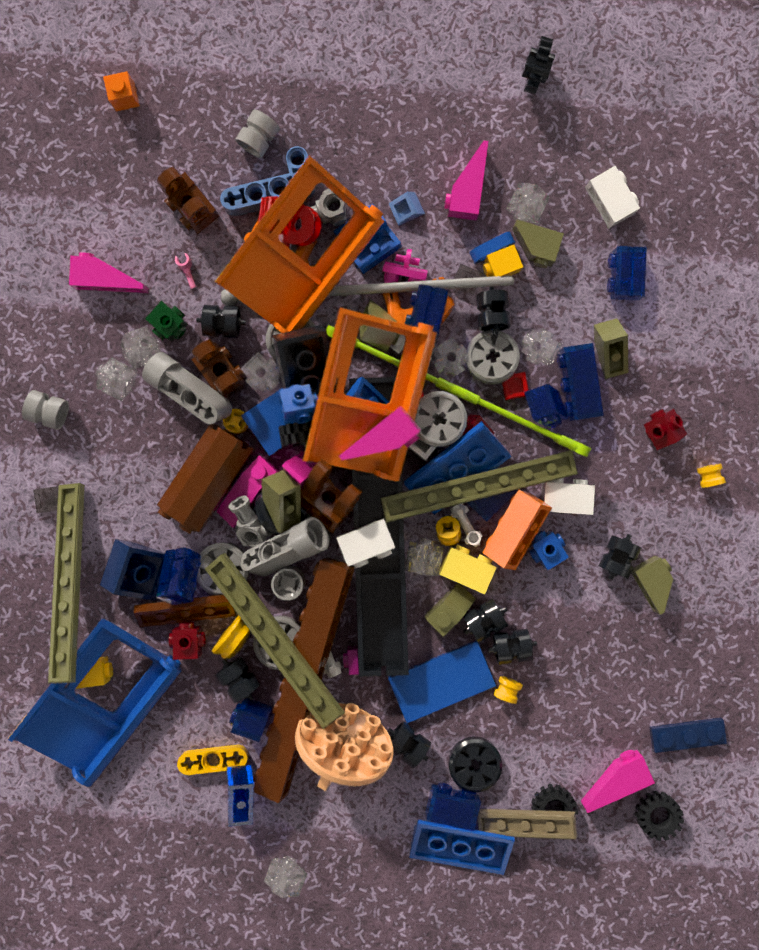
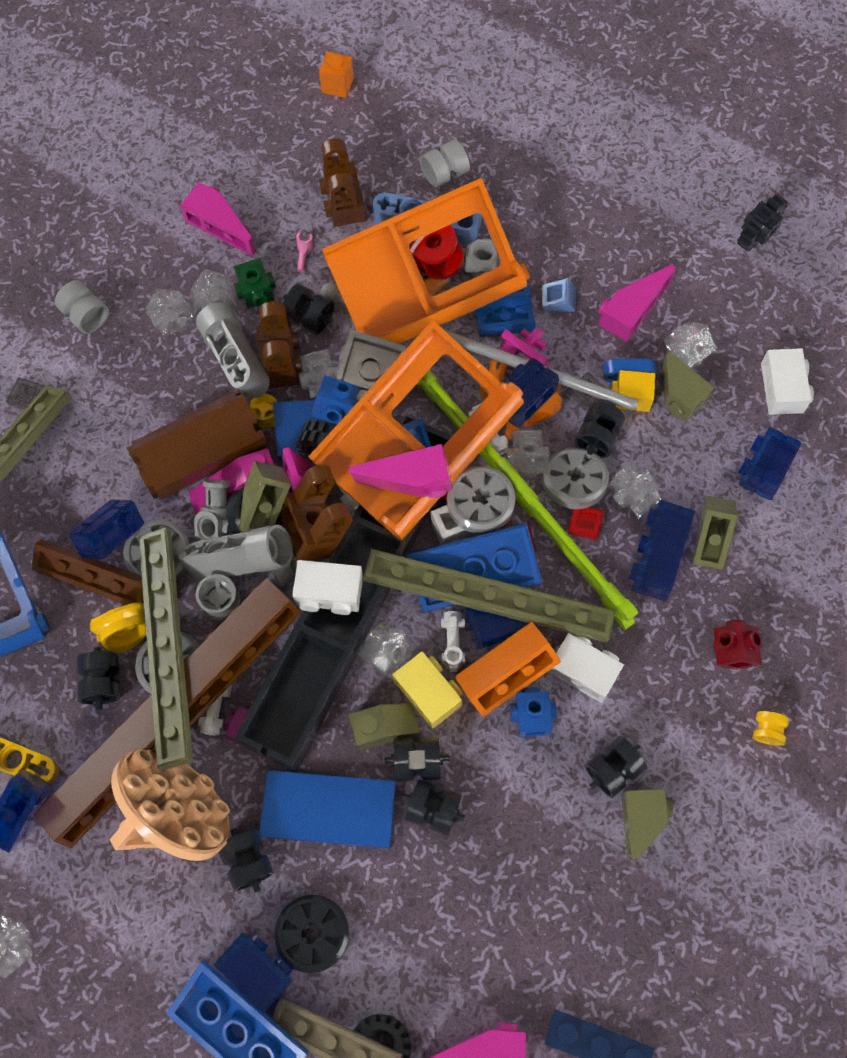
camera: 30 degrees right, 20 degrees down
(133, 570) = (62, 503): dark blue slope -> none
(181, 647) = (71, 606): dark red brick -> none
(250, 719) = (82, 724): clear blue brick -> none
(374, 336) = (463, 388): olive slope -> none
(451, 536) = (429, 635): yellow wheel -> none
(508, 689) = (401, 858): yellow wheel -> none
(546, 406) = (609, 547): clear blue brick -> none

